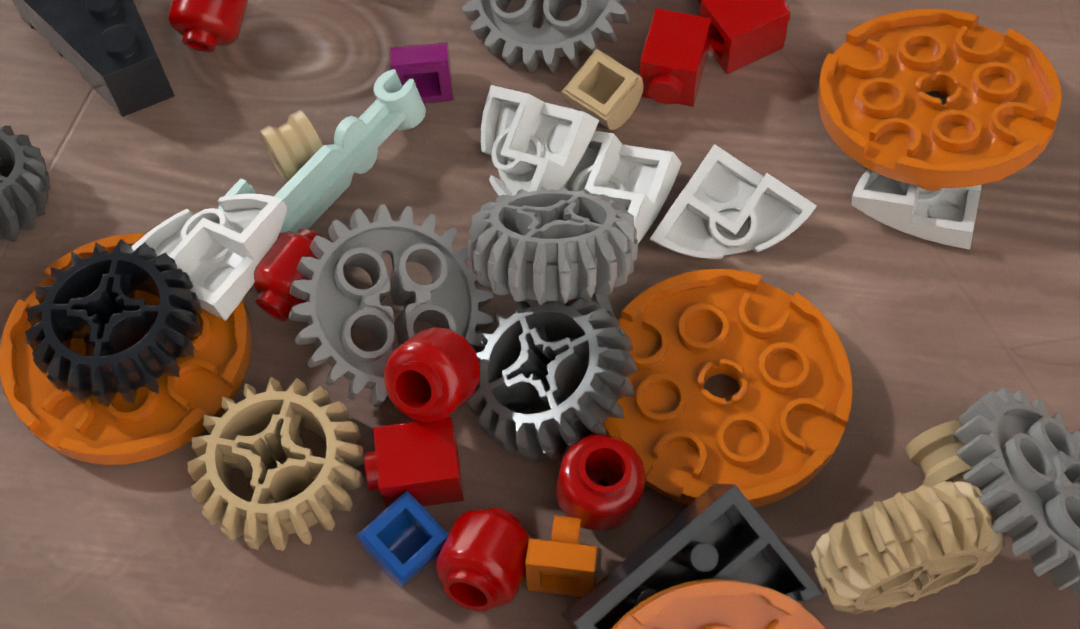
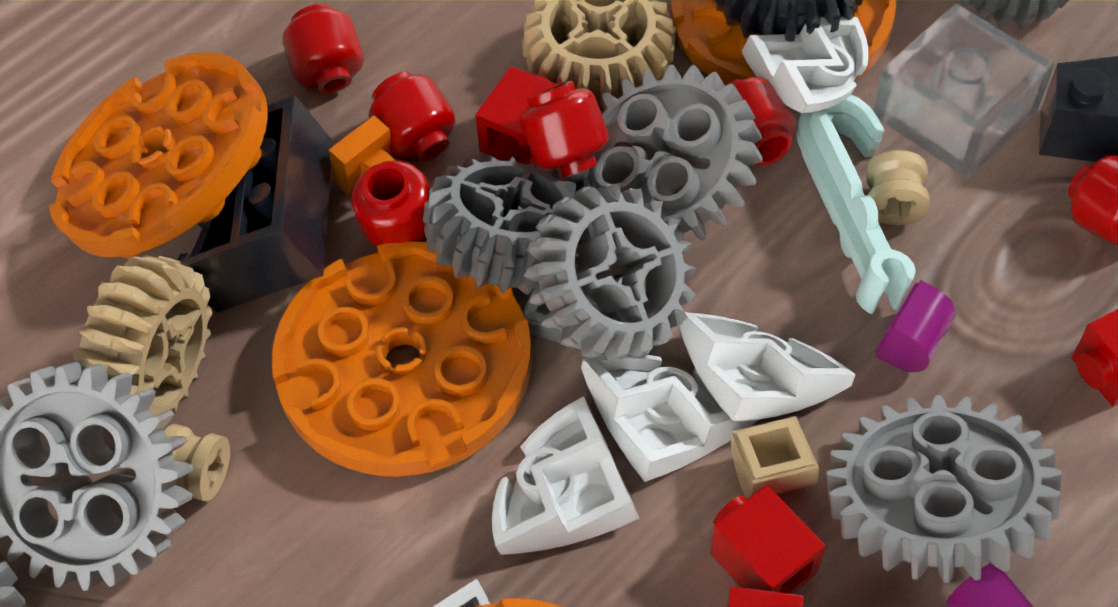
camera: 125 degrees right, 5 degrees down
(161, 141) = (961, 89): none -> clear brick
(403, 540) = (468, 80): blue brick -> none

